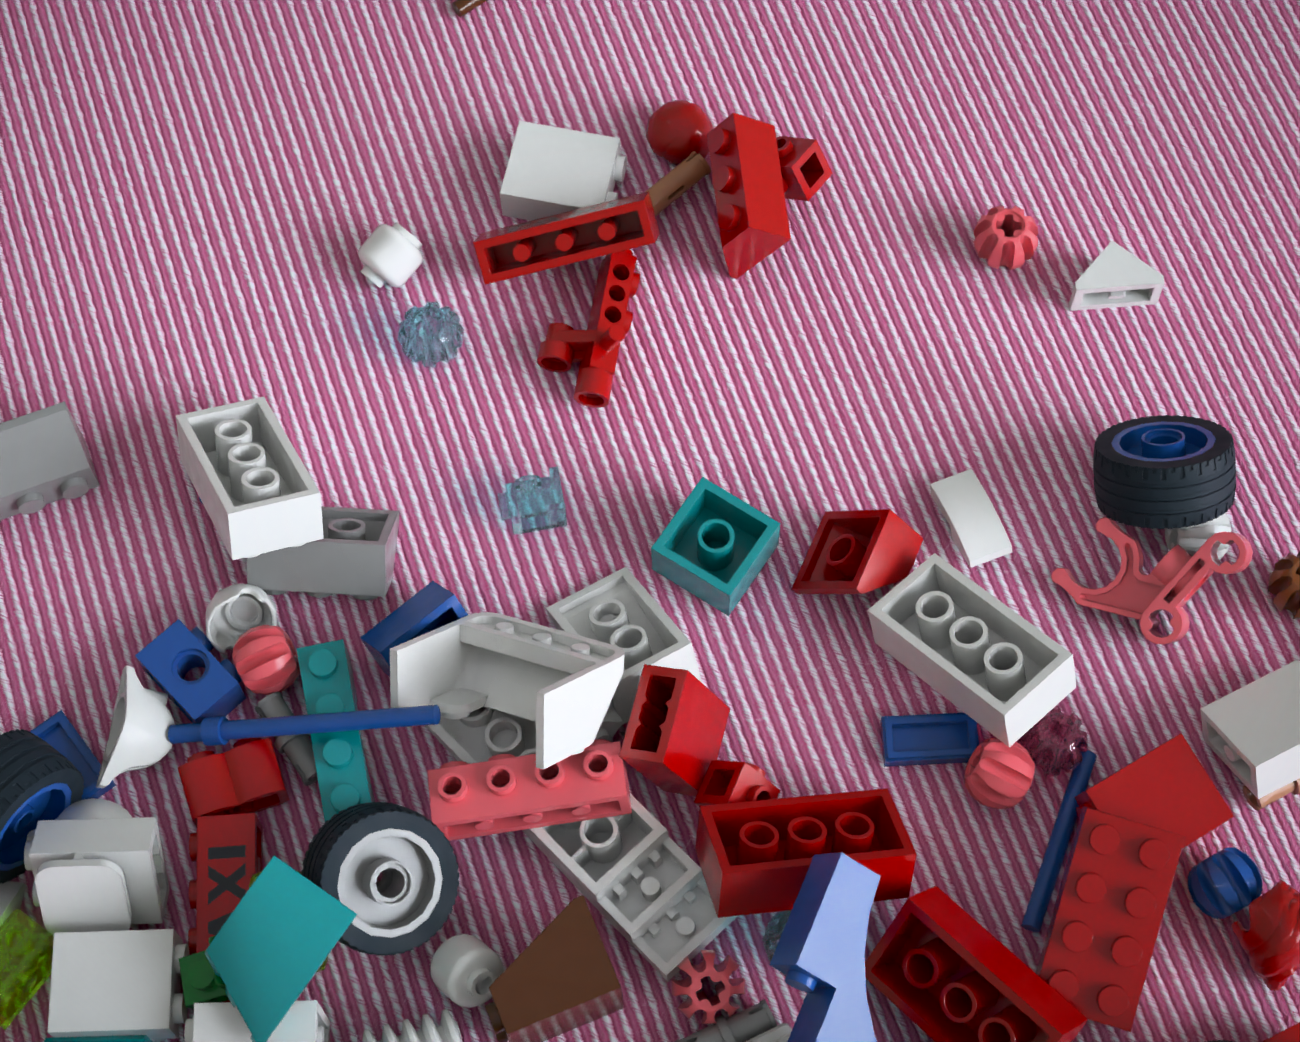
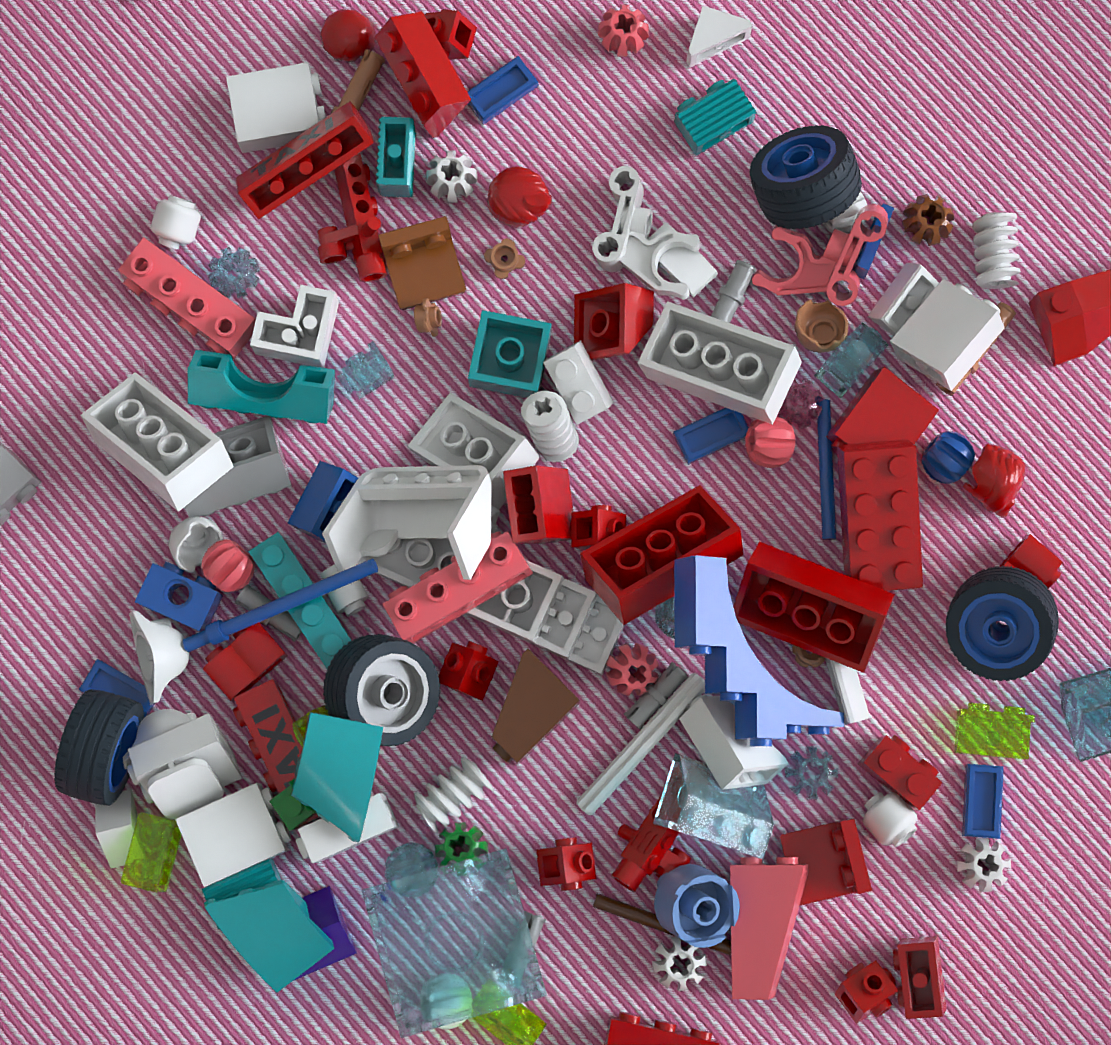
camera: 25 degrees left, 15 degrees up
(354, 447) = (218, 383): none -> teal arch
(366, 345) = (188, 298): none -> coral brick
(394, 752) = (347, 598): none -> white brick
(465, 970) = (465, 725): white head -> none
(480, 431) = (299, 338): none -> white brick
(500, 902) = (468, 670): none -> red brick
(635, 469) = (427, 317): none -> nougat plate
(656, 403) = (422, 263): none -> dark orange bracket
(676, 276) = (396, 156): none -> teal brick
(729, 645) = (550, 425): none -> white piece
(732, 322) = (444, 168): none -> white piece
(757, 426) = (508, 249): none -> nougat plate
(785, 608) = (578, 382): none -> white brick
(802, 372) = (518, 197): none -> red hair
(832, 253) = (501, 90): none -> blue tile
(918, 469) = (630, 236): none -> white piece
(1021, 581) = (733, 293): none -> light grey pin
(1079, 370) = (714, 115): none -> teal brick
(1117, 660) = (820, 326): none -> nougat hair
(1142, 715) = (851, 359): none -> clear light blue slope
(1219, 589) = (870, 248): none -> blue tile
(1237, 666) = (903, 297): none -> white slope

